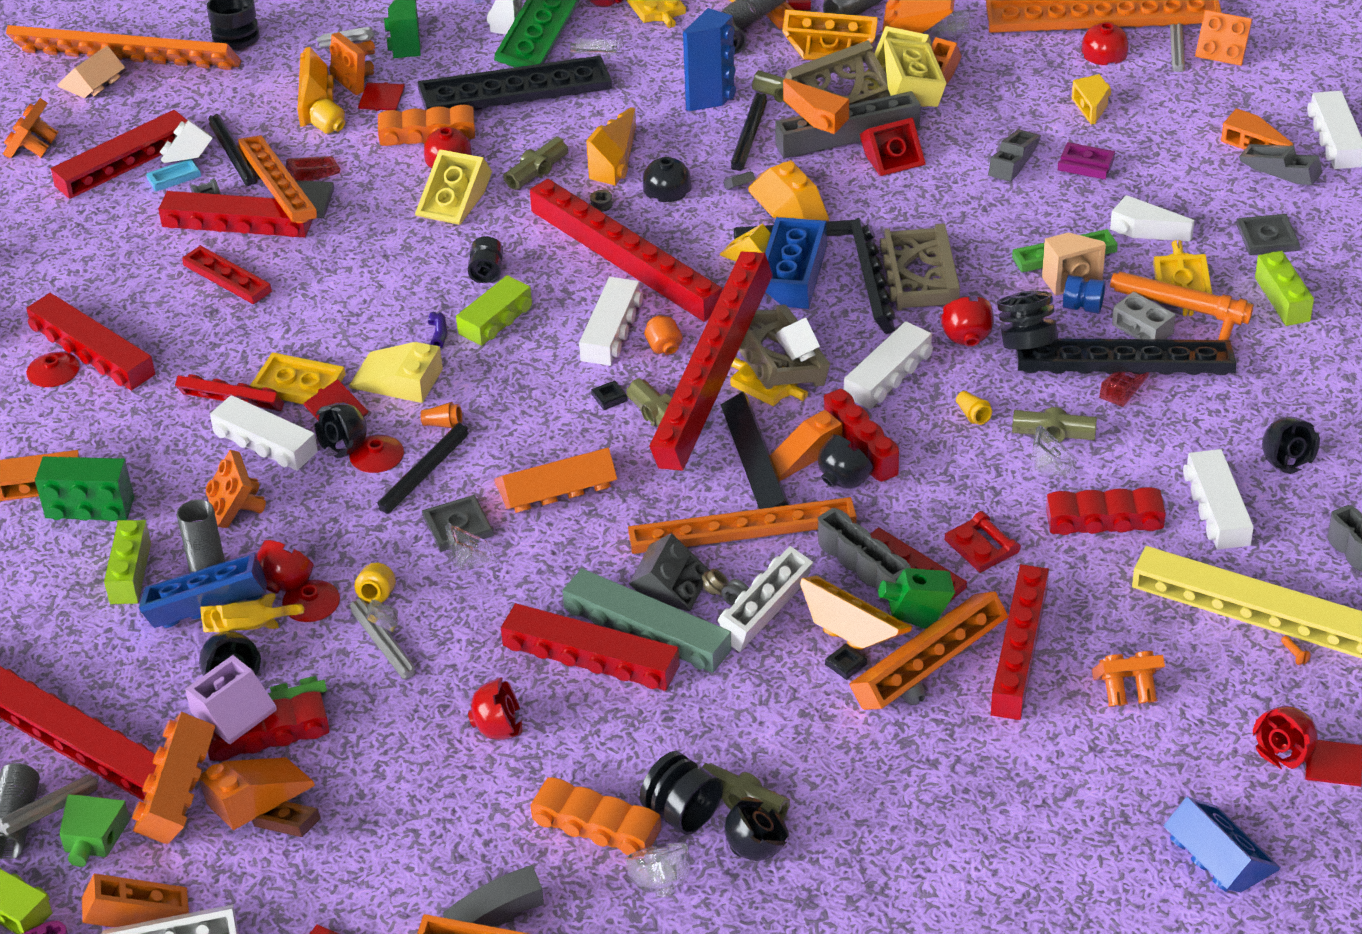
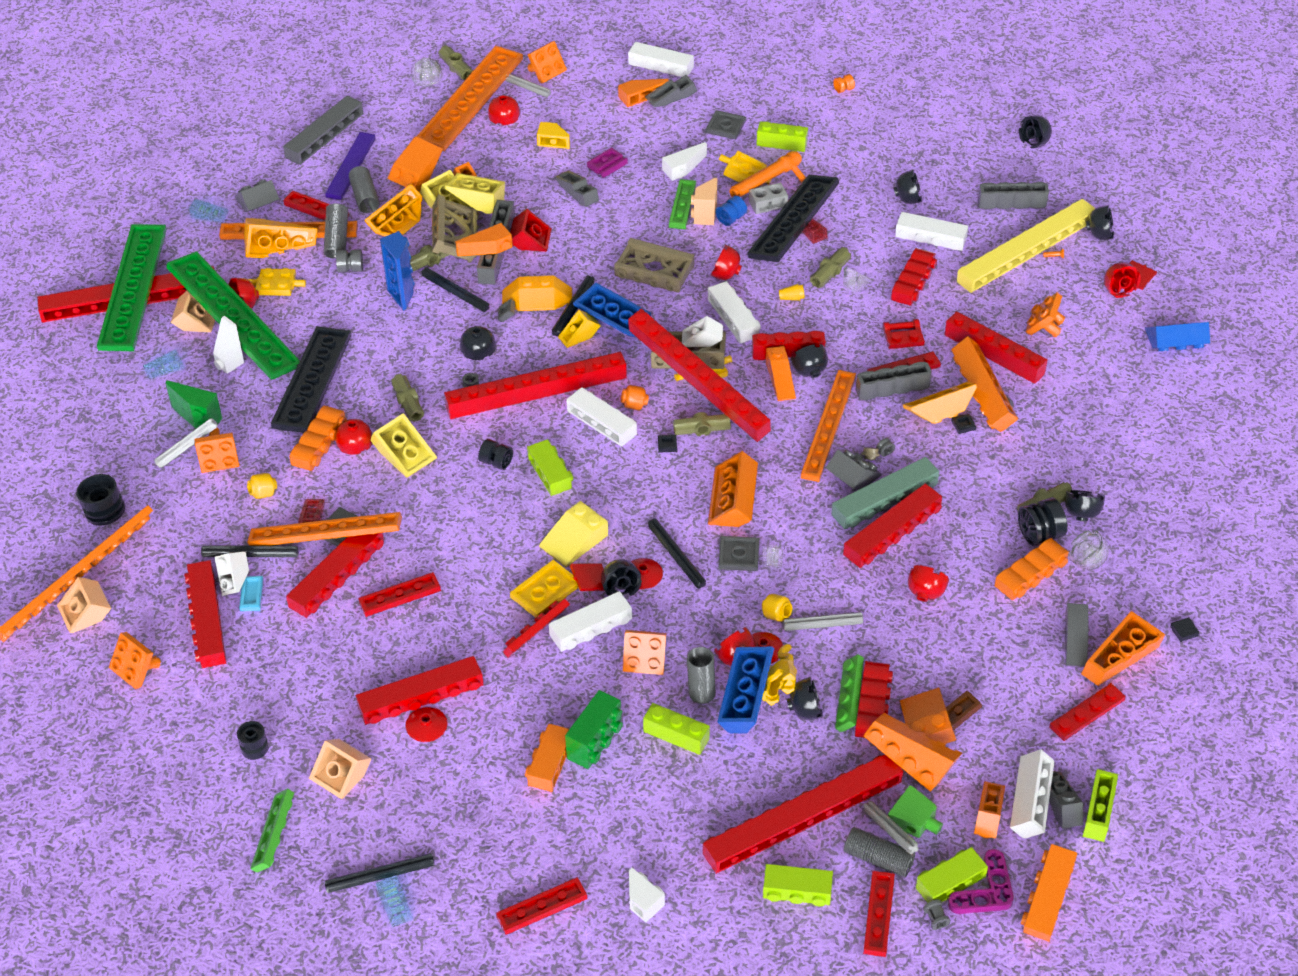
camera: 65 degrees left, 5 degrees up
(210, 188) = (292, 577): dark grey bush -> none
(230, 699) = (862, 699): lavender slope -> none
(313, 84) = (217, 481): light orange wedge -> none
(381, 96) = (255, 452): red piece -> none
(382, 615) = (808, 612): clear tile -> none
(440, 333) = (542, 500): dark purple arm -> none
(442, 416) = (635, 526): orange cone -> none
(597, 47) = (306, 325): clear slope -> none
(611, 147) = (431, 356): light orange wedge -> none
(753, 452) = (781, 398): black tile -> none
(765, 597) = (904, 432): white brick -> none
(873, 278) = (654, 288): black plate -> none
(918, 595) = (948, 370): green torso -> none
(1027, 320) = (748, 237): black wheel -> none

